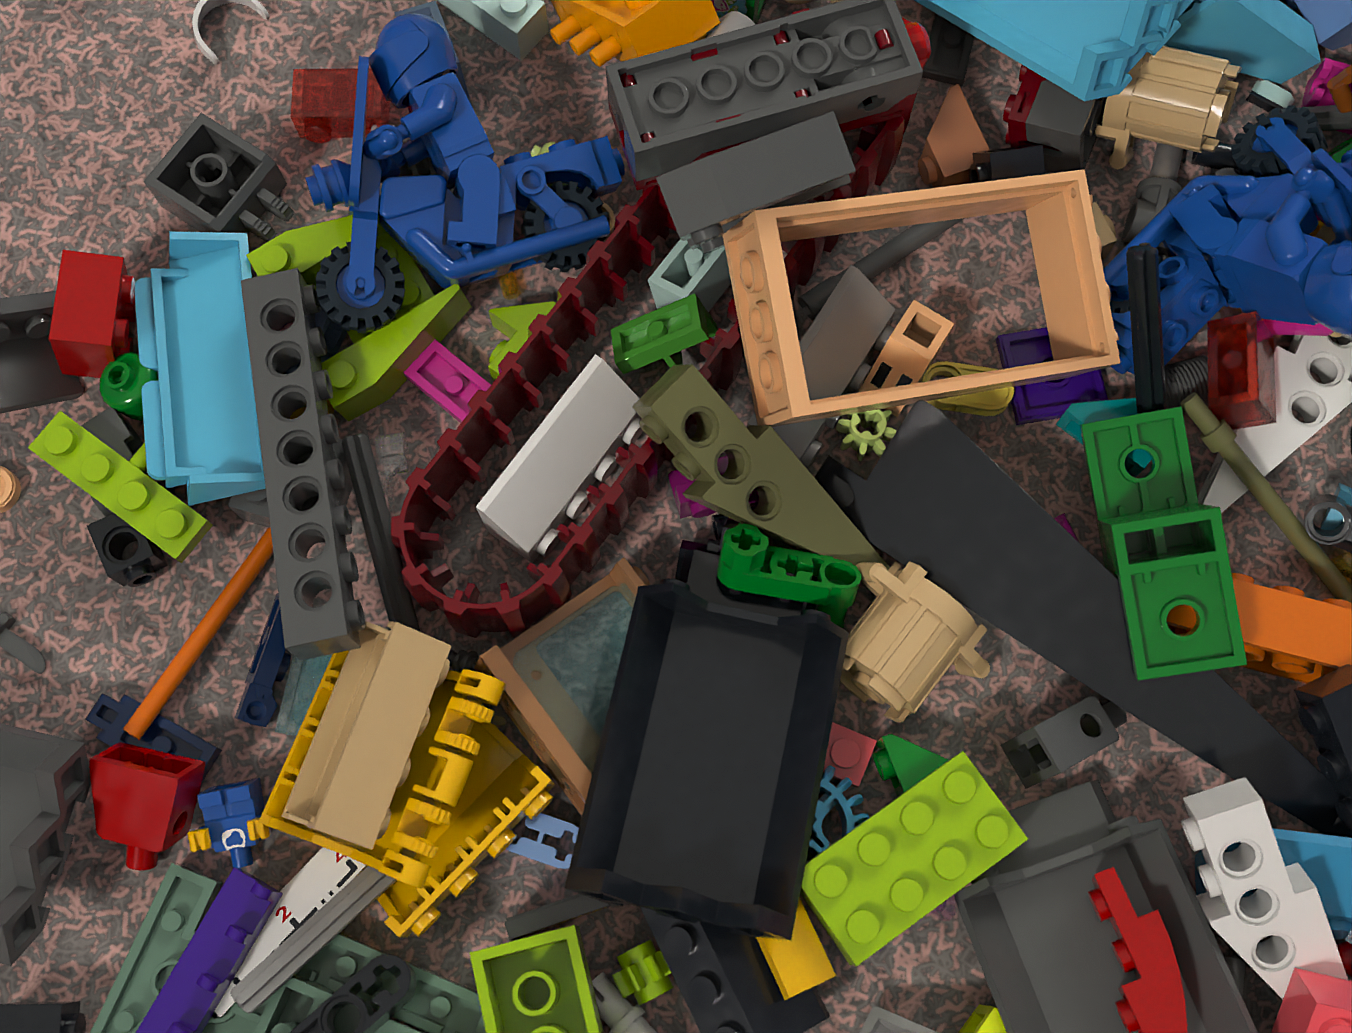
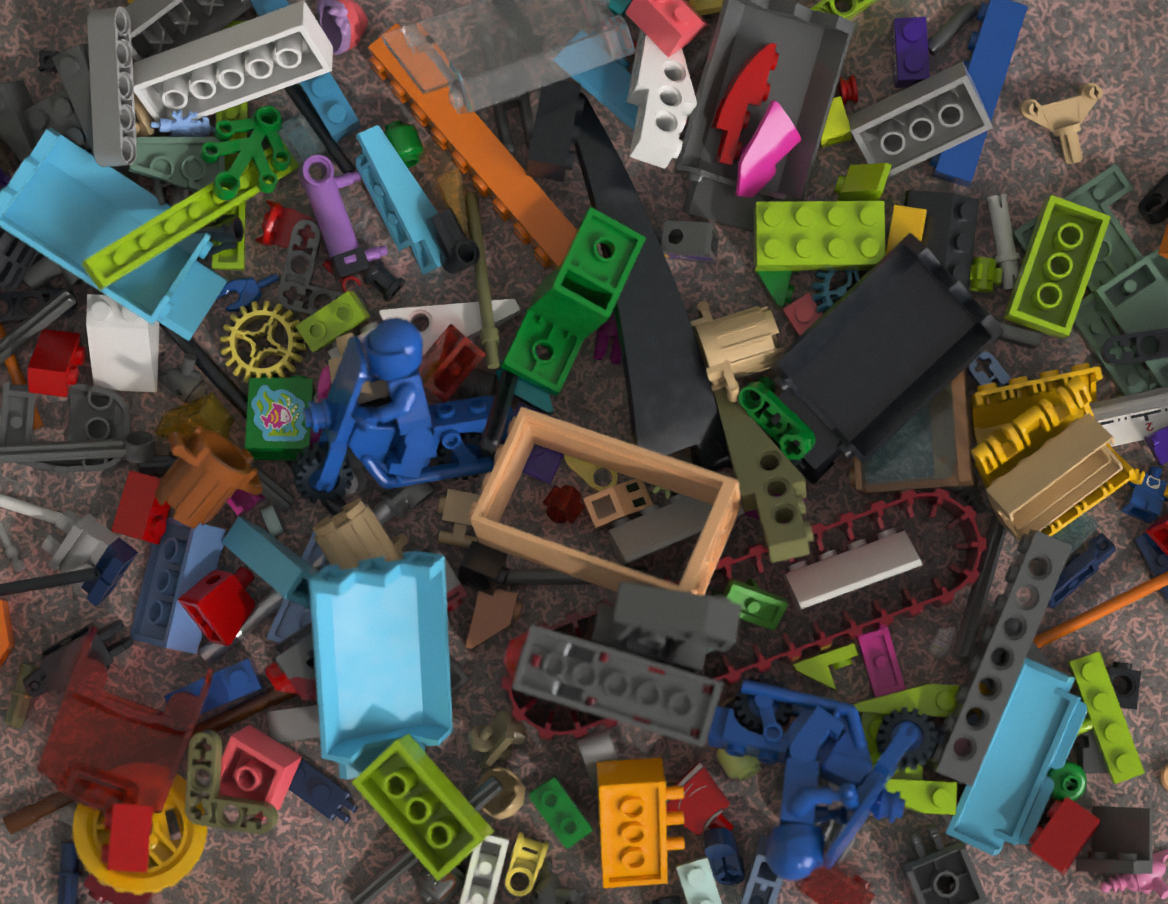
camera: 150 degrees left, 10 degrees up
(498, 56) = (724, 856): none -> dark blue piece
(565, 97) = (701, 802): none -> red torso
(894, 981) = (862, 182): none -> lime slope
(970, 317) = (563, 504): none -> clear red gear
(1066, 929) = (769, 144): none -> dark pink panel

